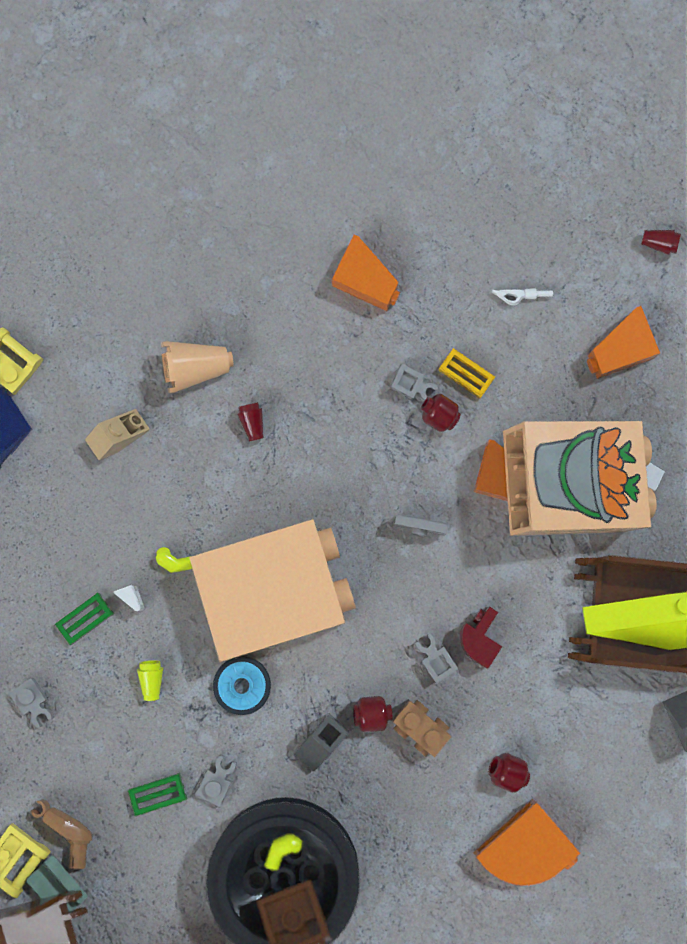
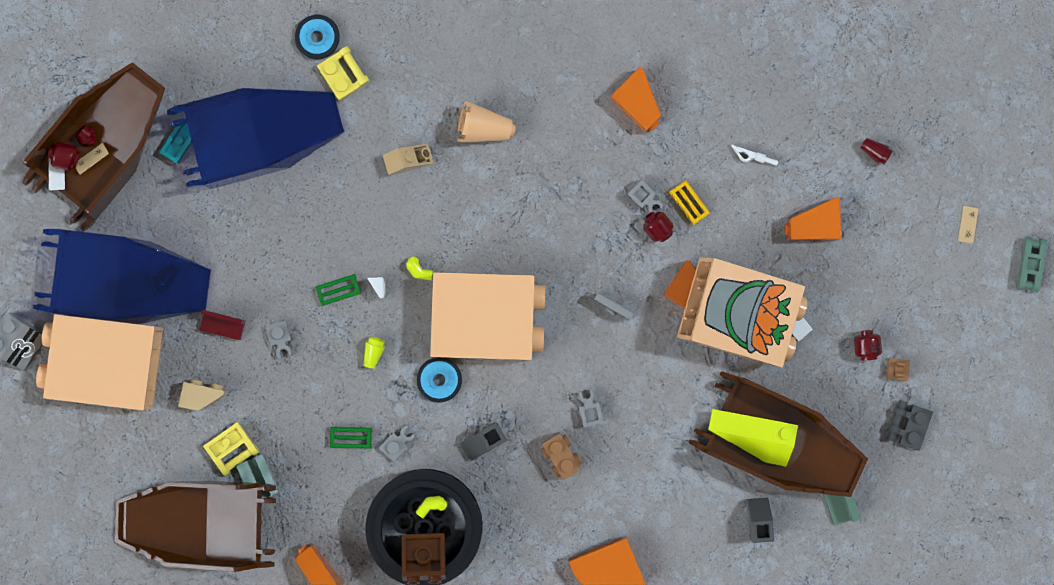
camera: 20 degrees right, 5 degrees up
(70, 829) = (280, 440): medium nougat arm -> none
(251, 420) = (513, 183): dark red cone -> none
(372, 714) = (528, 433): dark red head -> none
(476, 643) = (623, 408): dark red brick -> none
(509, 772) = (614, 510): dark red head -> none

